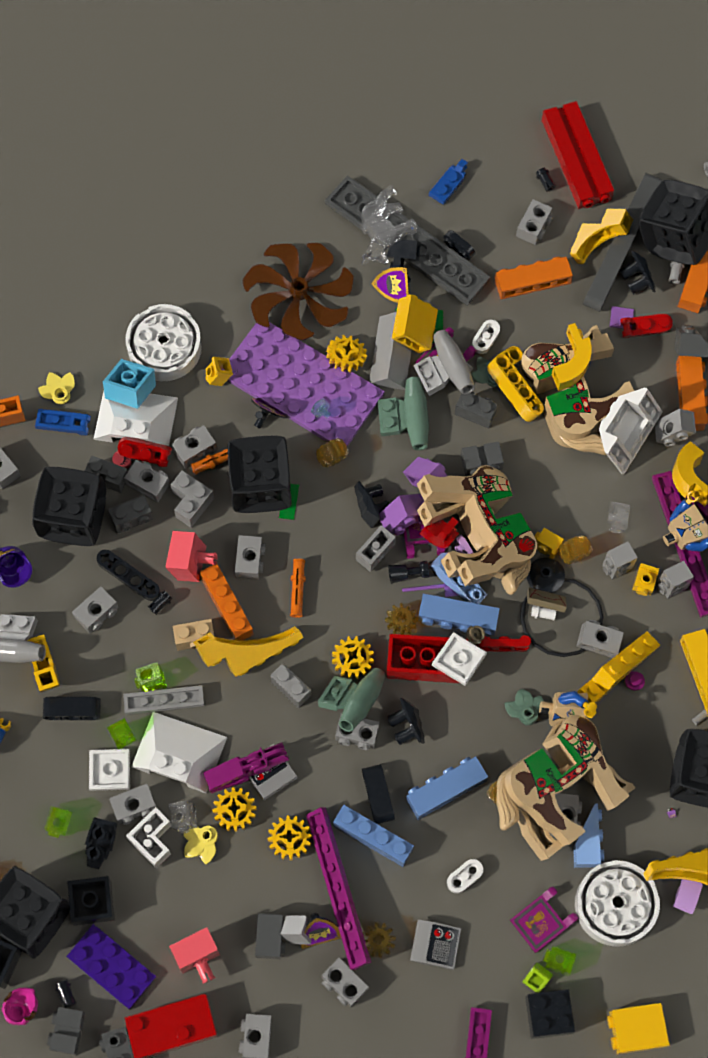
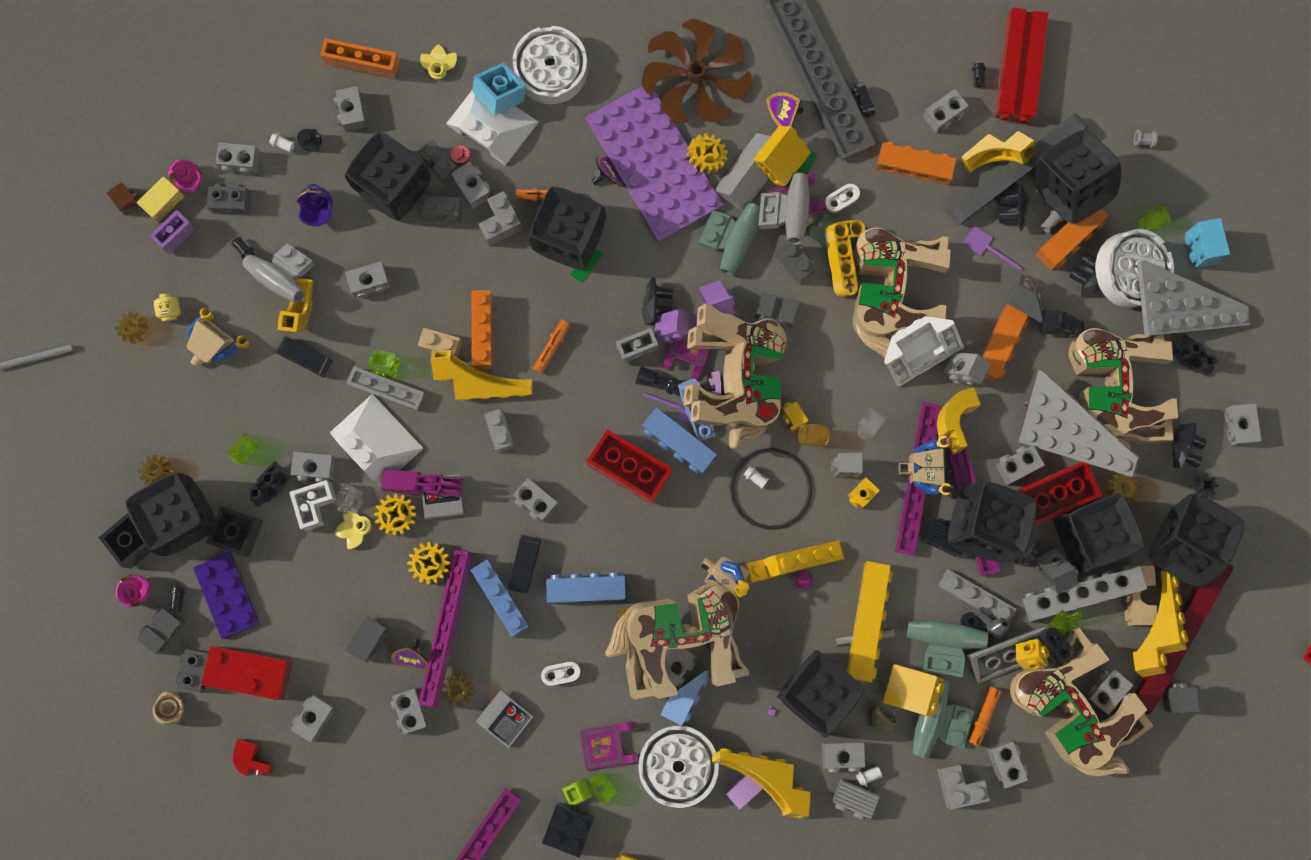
camera: 30 degrees right, 10 degrees up
(62, 421) = (426, 95): blue plate -> none
(109, 769) = (310, 426): white tile -> none
(121, 733) = (334, 400): clear neon green brick -> none
(128, 575) = (411, 263): black beam -> none
(144, 450) = (481, 157): red plate -> none
(160, 602) = (426, 300): black pin -> none
(187, 556) = (468, 271): coral brick -> none
(190, 455) = (536, 179): light grey brick -> none
(195, 952) = (297, 622): coral brick -> none
(214, 371) = (580, 113): yellow brick -> none
(249, 546) = (524, 287): light grey brick -> none
(294, 930) = (388, 645): light grey panel -> none
(321, 408) = (655, 194): clear light blue tile -> none
(332, 452) = (645, 239): clear yellow gear -> none
(346, 653) = (574, 428): yellow gear -> none
(353, 698) = (545, 470): sand green plate -> none
(380, 230) = (798, 53): clear animal -> none
(402, 251) = (809, 82): black brick -> none
(403, 613) = (632, 416): clear yellow gear -> none
(410, 713) = (589, 509): black connector -> none
(441, 533) = (701, 361): red brick -> none
(449, 182) = (888, 35): blue hinge -> none
(459, 659) = (654, 483): white tile -> none
(480, 634) = (686, 467): dark tan plate -> none
(505, 644) = (703, 487): red plate -> none
(524, 704) = (695, 550): sand green plate -> none
(546, 600) = (764, 467): dark tan tile -> none
(547, 583) = (772, 452): black dish -> none
(573, 370) = (898, 271): yellow arch -> none
(588, 638) = (781, 521): light grey brick -> none
(646, 325) = (995, 258): red plate -> none
(675, 579) = (888, 508): light grey brick -> none

